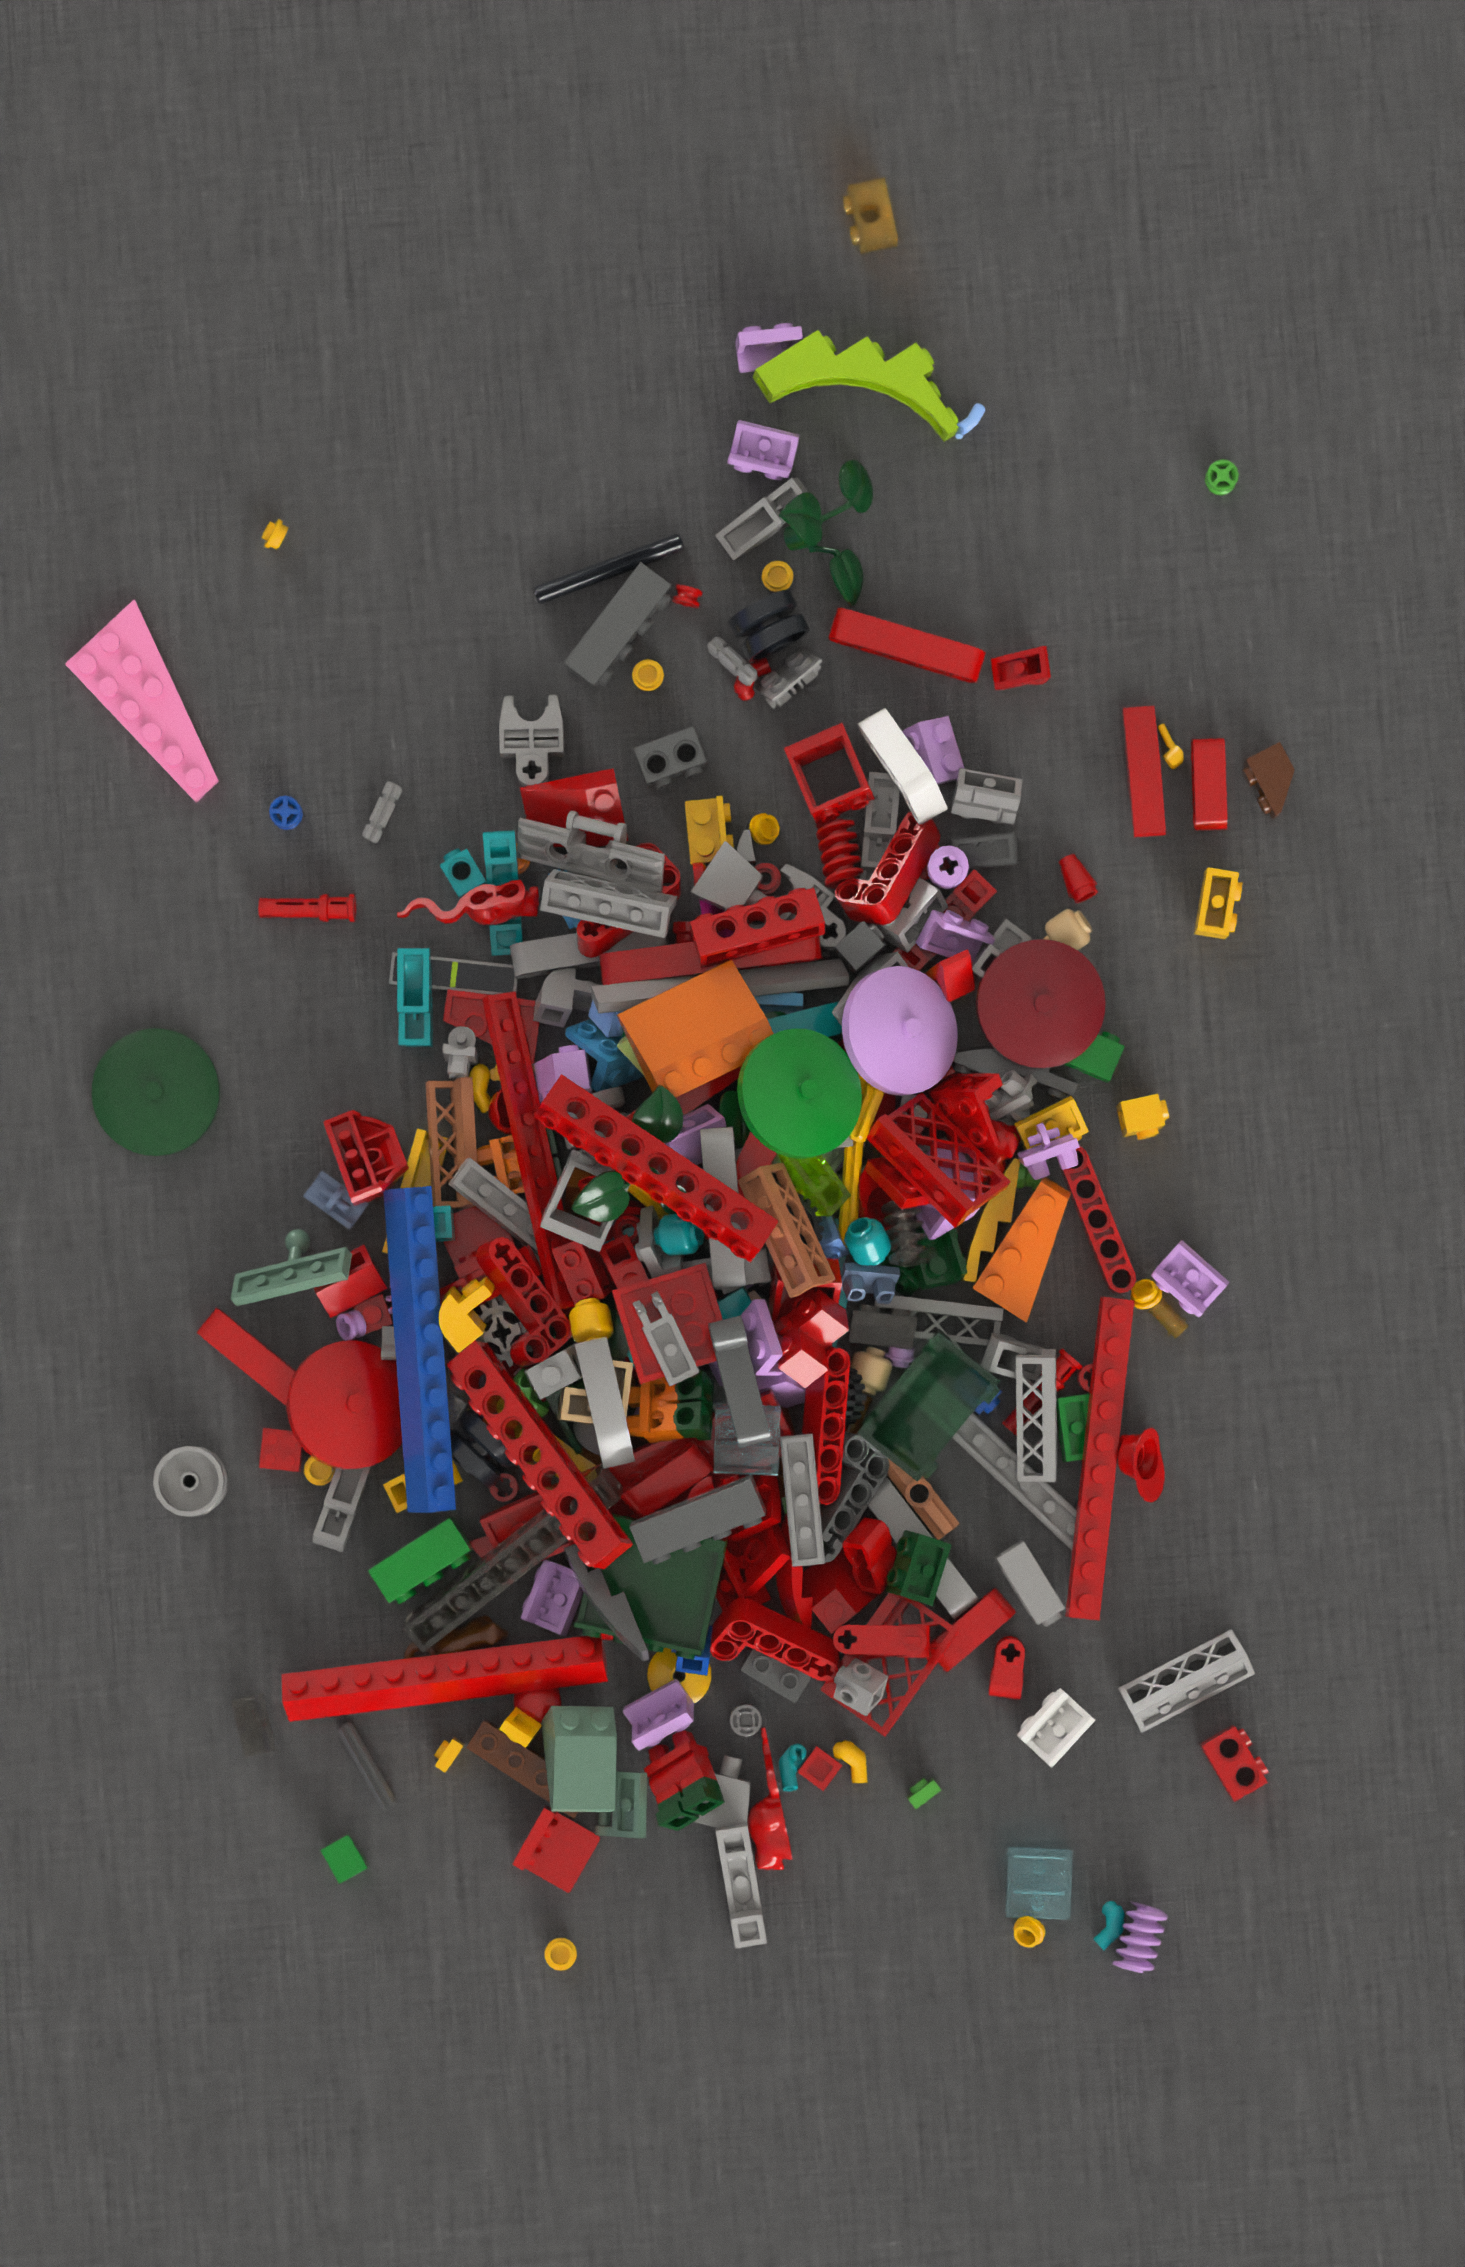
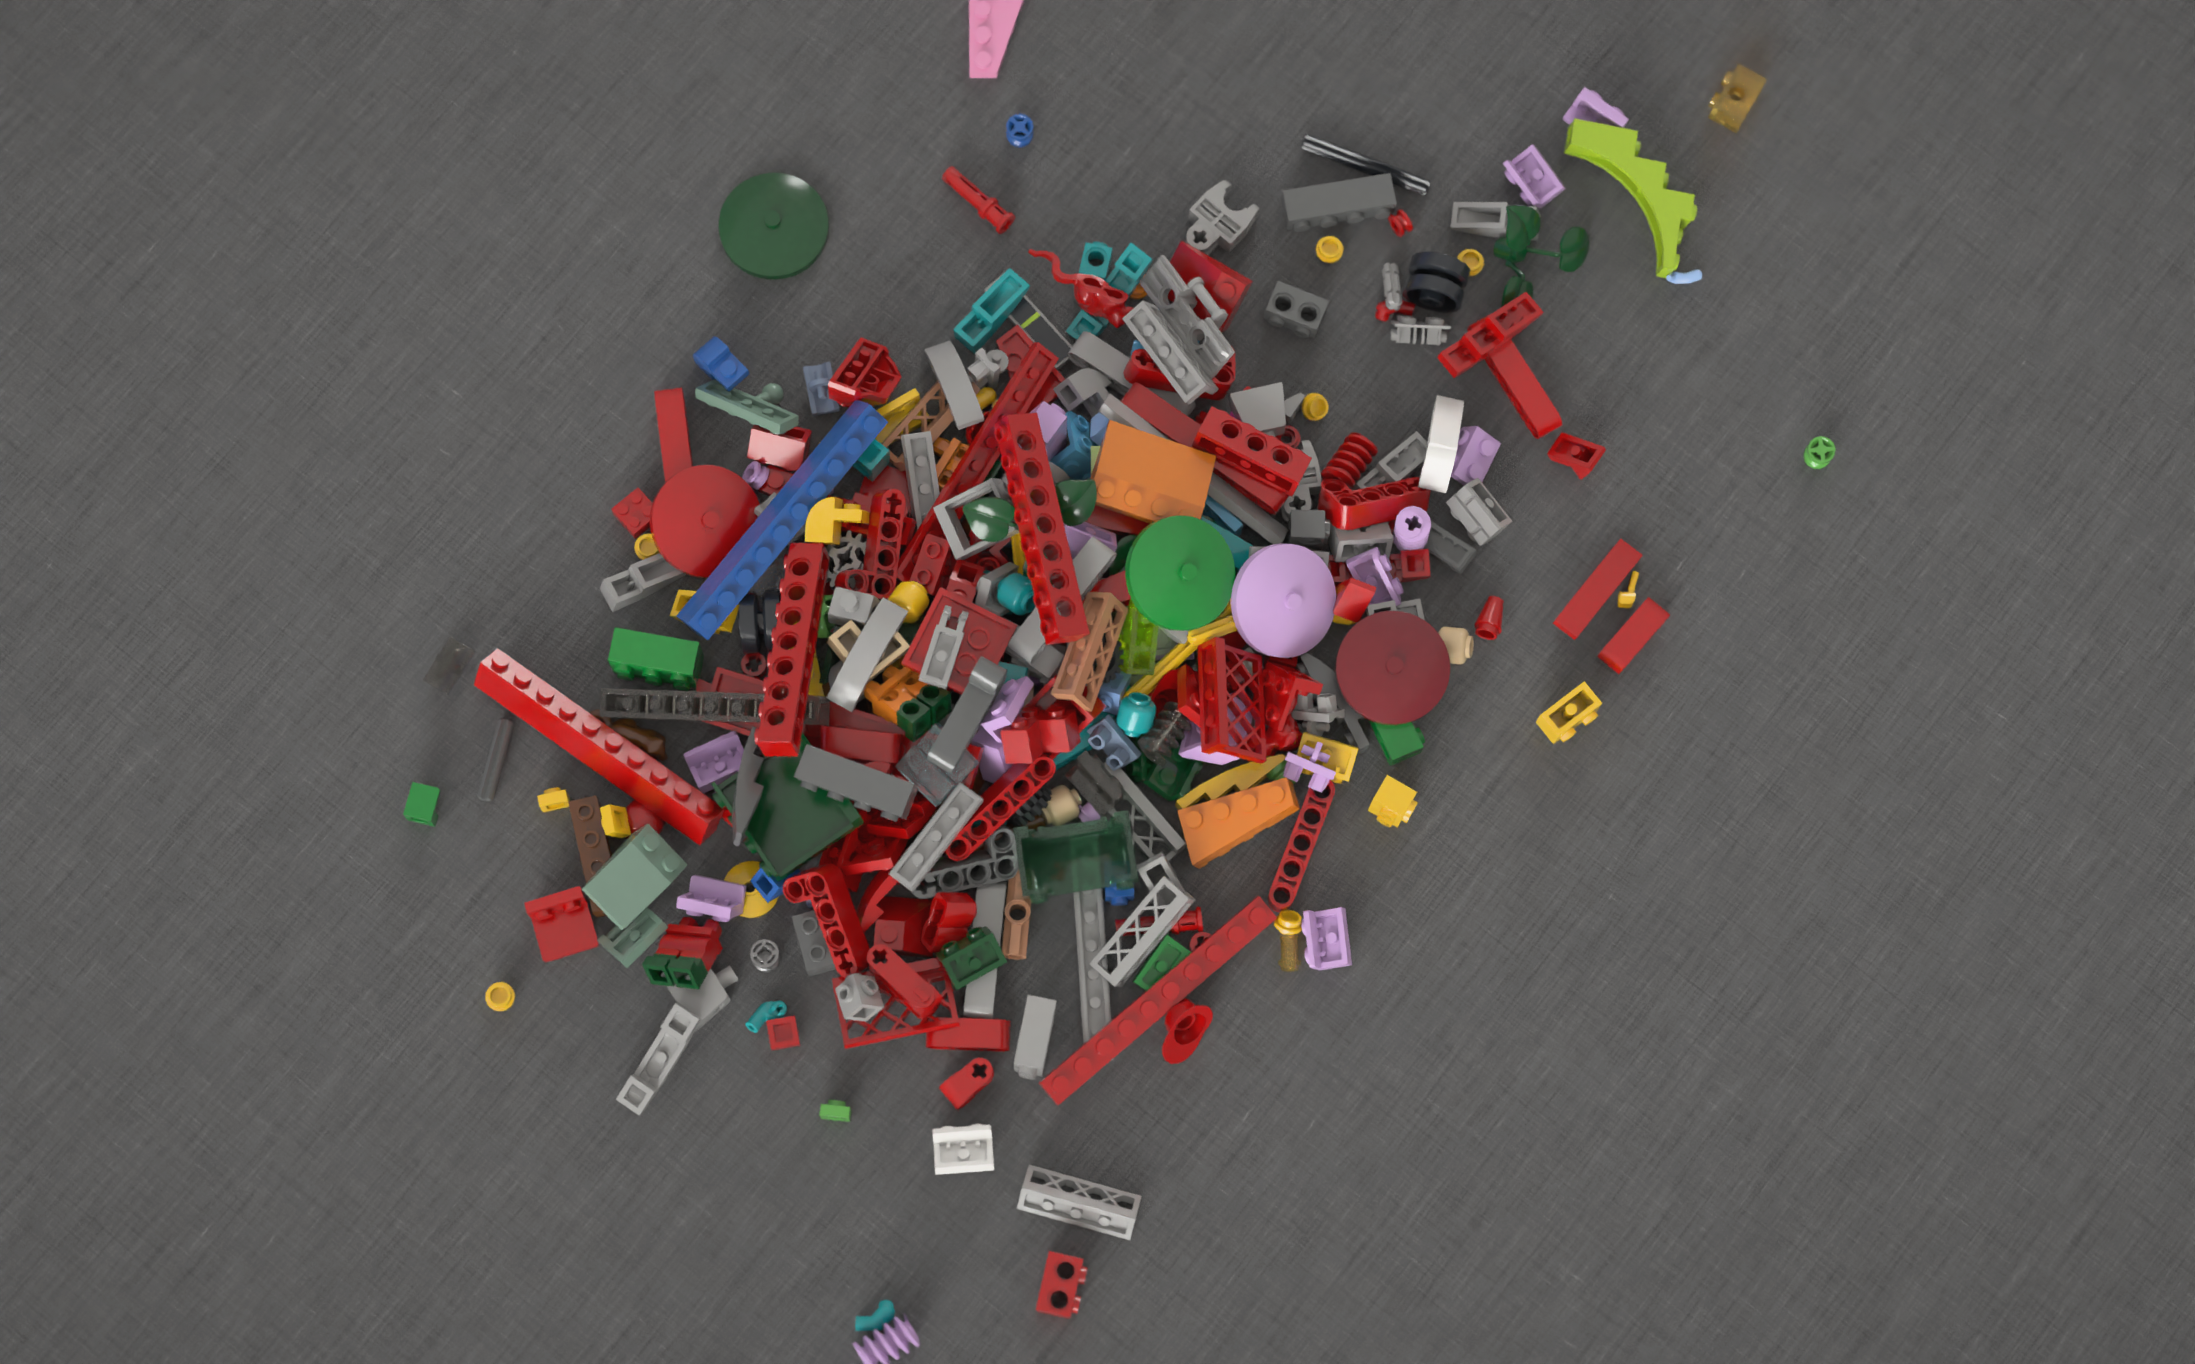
camera: 35 degrees right, 10 degrees down
(174, 1471) = (560, 477): light grey wheel -> none
(232, 1258) = (720, 363): none -> blue brick
(382, 812) = (1080, 183): light grey axle -> none
(446, 1093) = (955, 384): none -> light grey slope
(707, 828) = (1281, 368): yellow bracket -> none
(767, 1821) = (717, 1034): red animal -> none
(816, 748) = (1385, 382): red window -> none
(854, 1757) = (813, 1048): yellow arm -> none
(857, 632) = (1490, 334): none -> red slope
(1028, 1931) = (817, 1269): yellow plate -> none
(1039, 1883) = (854, 1244): clear light blue slope -> none
(1272, 776) = (1680, 667): reddish brown slope -> none

